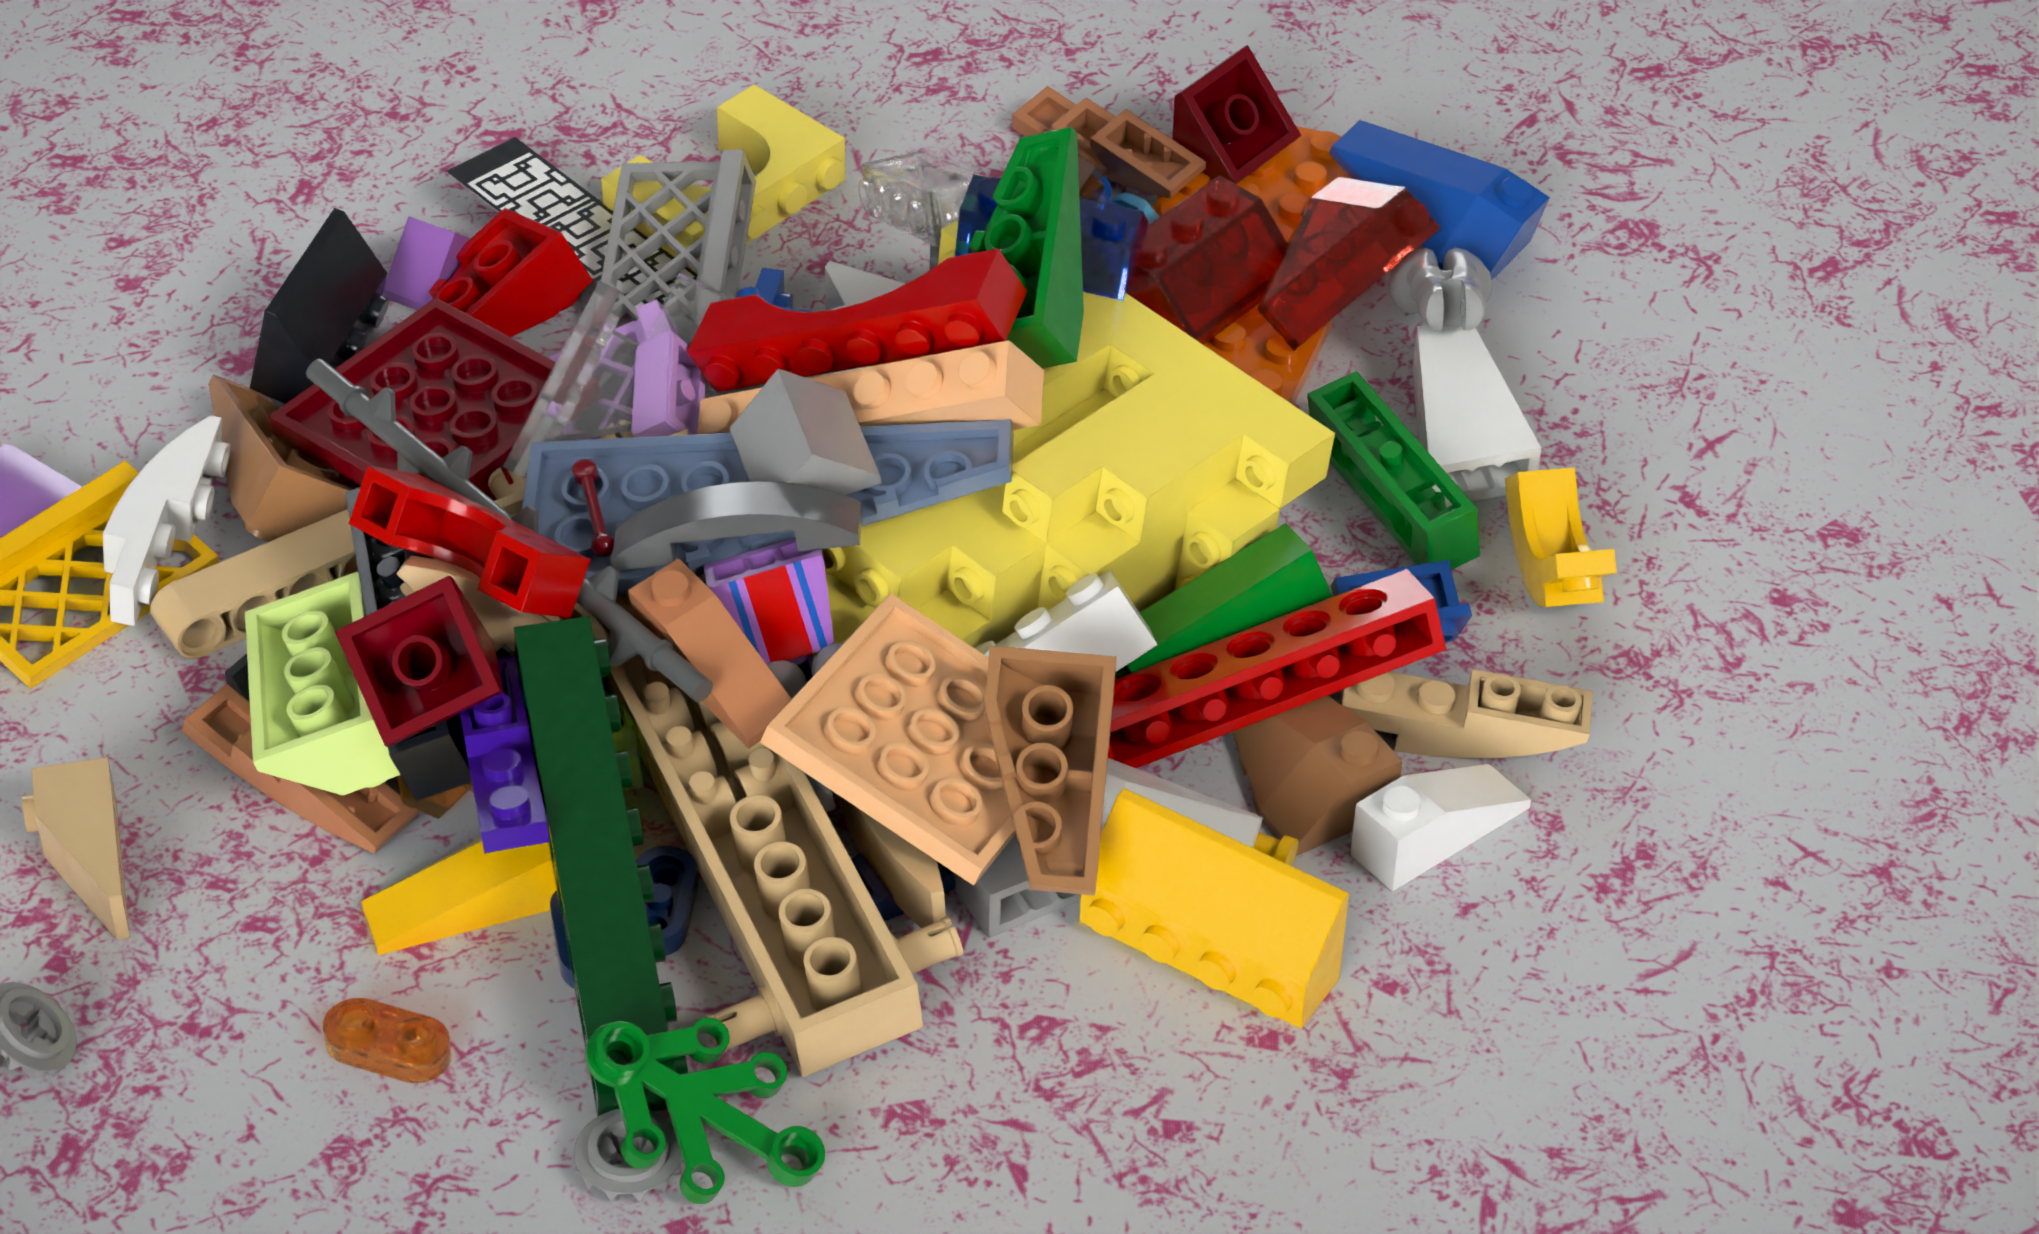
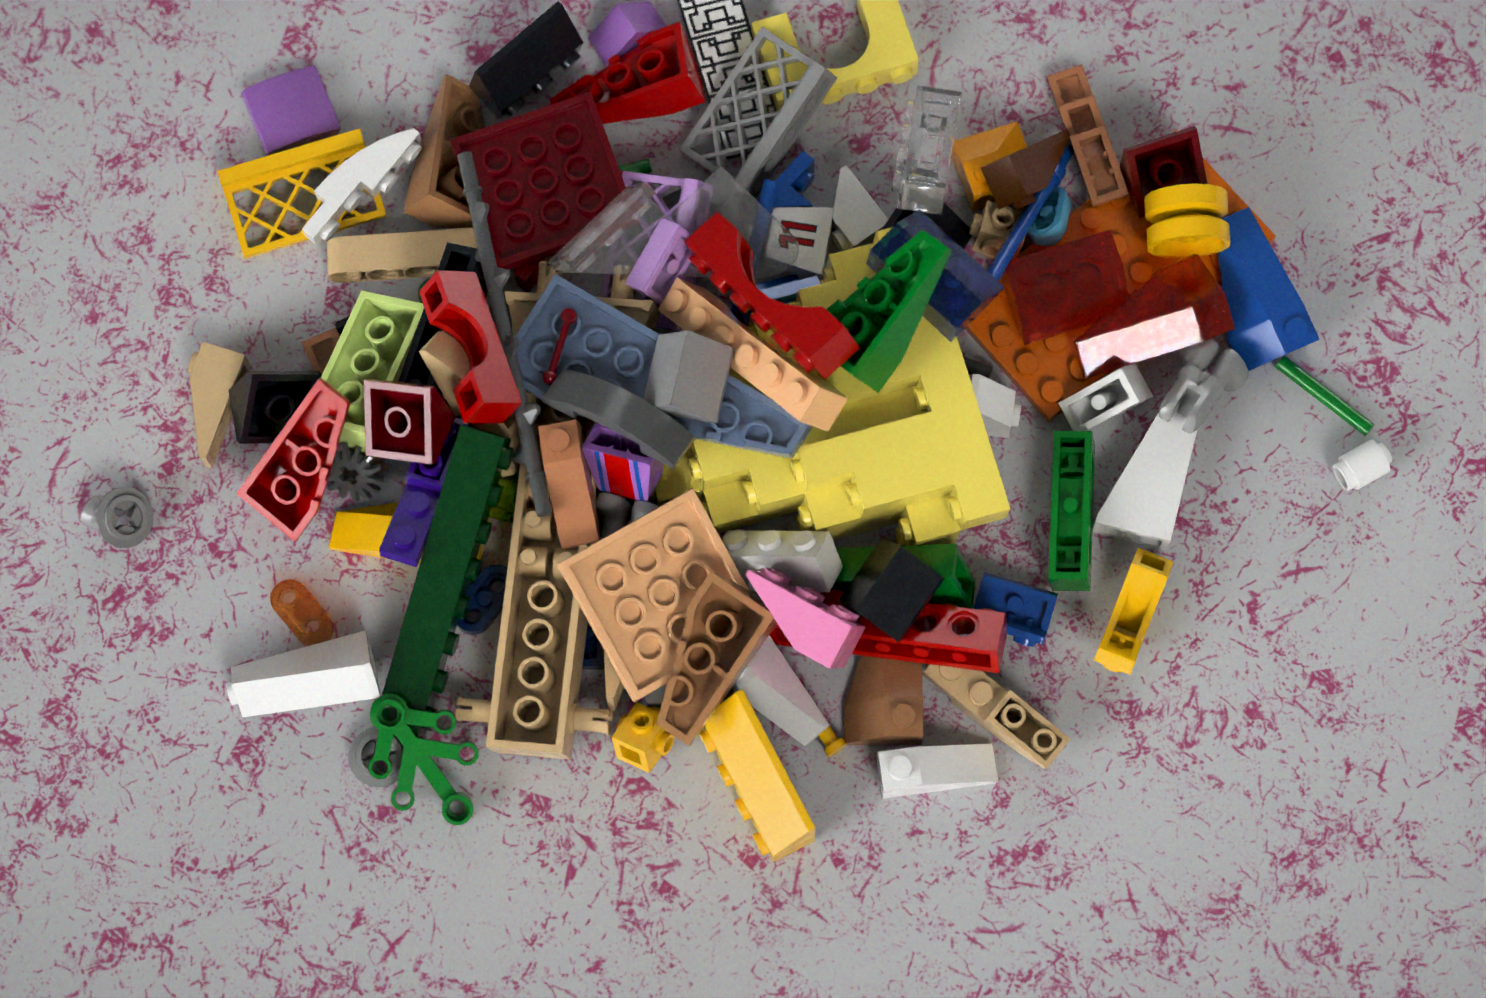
camera: 35 degrees right, 30 degrees up
(190, 788) = (266, 401): none -> black slope
(279, 832) = (297, 465): none -> red wedge
(356, 804) = (364, 479): none -> dark grey gear
(454, 1086) = (306, 677): none -> white slope
(1012, 943) = (640, 739): none -> yellow brick
(1171, 657) = (811, 626): none -> bright pink slope
(1238, 597) = (891, 589): none -> black slope
(1303, 134) = (1187, 220): none -> yellow wheel
(1346, 342) = (1106, 398): none -> white slope
(1594, 271) = (1324, 395): none -> green bar
(1699, 306) = (1362, 465): none -> white brick

